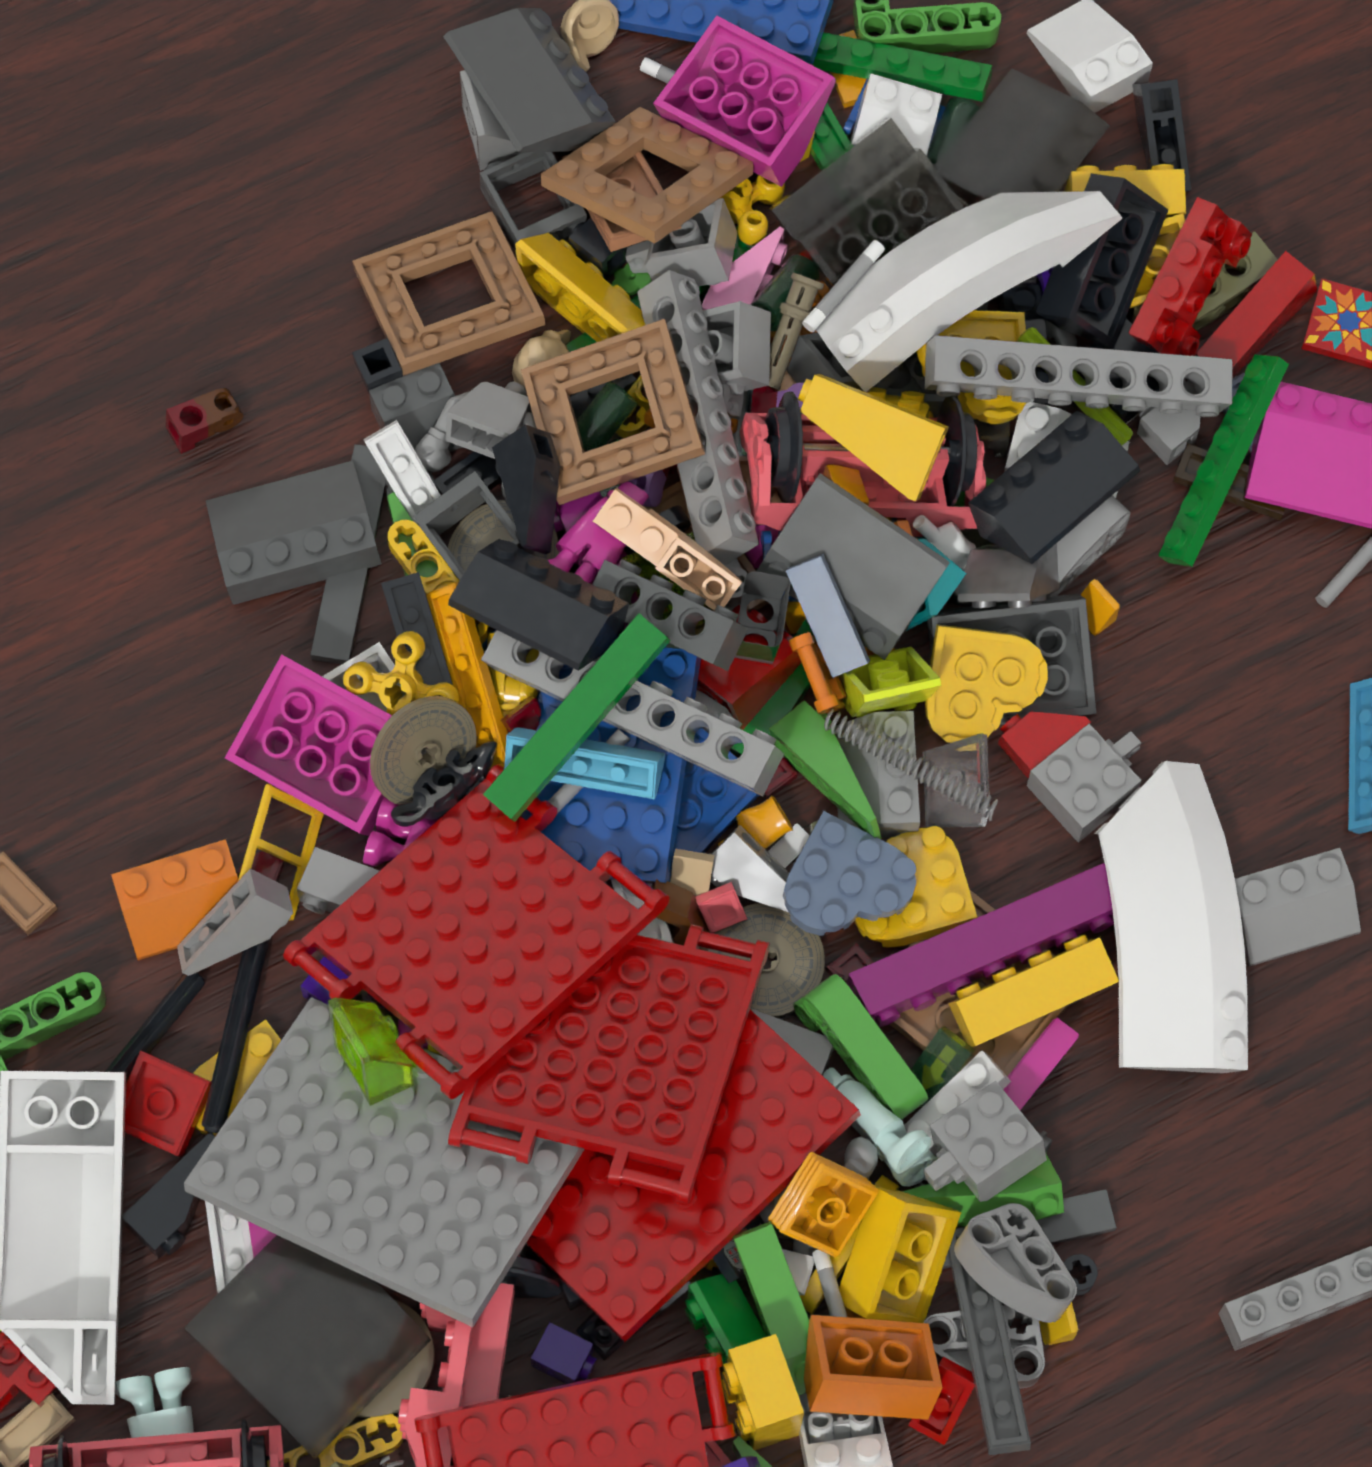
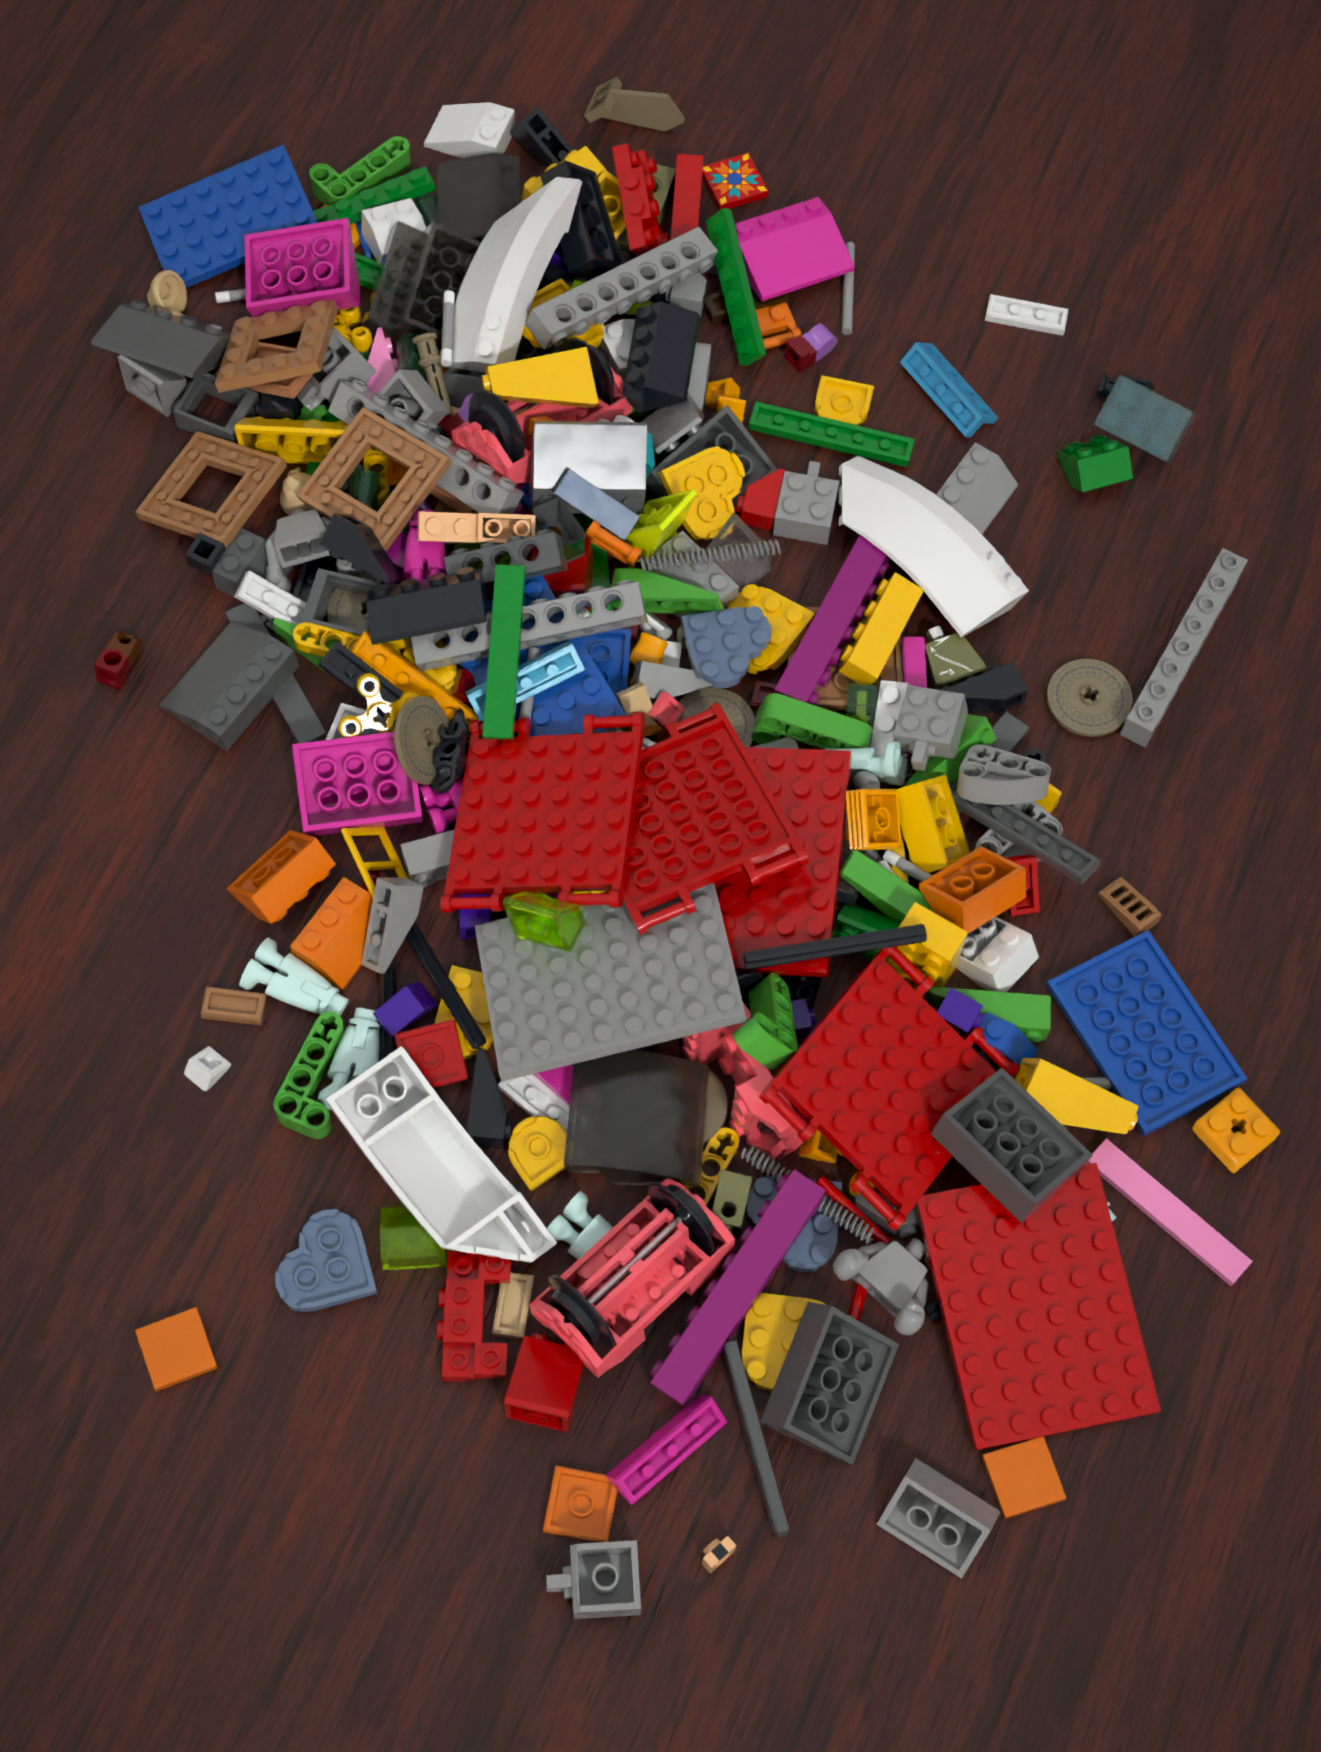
camera: 40 degrees left, 5 degrees down
(90, 918) = (294, 983): none -> light aqua piece
(90, 1040) = (355, 1052): none -> light aqua piece
(172, 788) = (282, 876): none -> orange slope
(178, 1031) = (405, 1008): none -> dark purple slope
(183, 1286) = (537, 1149): none -> yellow tile
(498, 1362) = (771, 1029): none -> bright green beam
(648, 1317) = (835, 946): none -> black axle
(800, 799) = (656, 627): none -> white slope
(1090, 1084) = (950, 659): none -> olive torso
(1106, 1153) = (992, 691): none -> black slope
(1113, 573) = (724, 387): none -> light orange slope
(1192, 715) = (831, 434): none -> green plate
(1241, 685) = (843, 400): none -> yellow tile
(1242, 527) = (777, 320): none -> orange plate
(1244, 1228) = (1081, 715): none -> dark tan piece
(1259, 591) = (809, 347): none -> leg
(1299, 148) = (633, 107): none -> dark tan piece

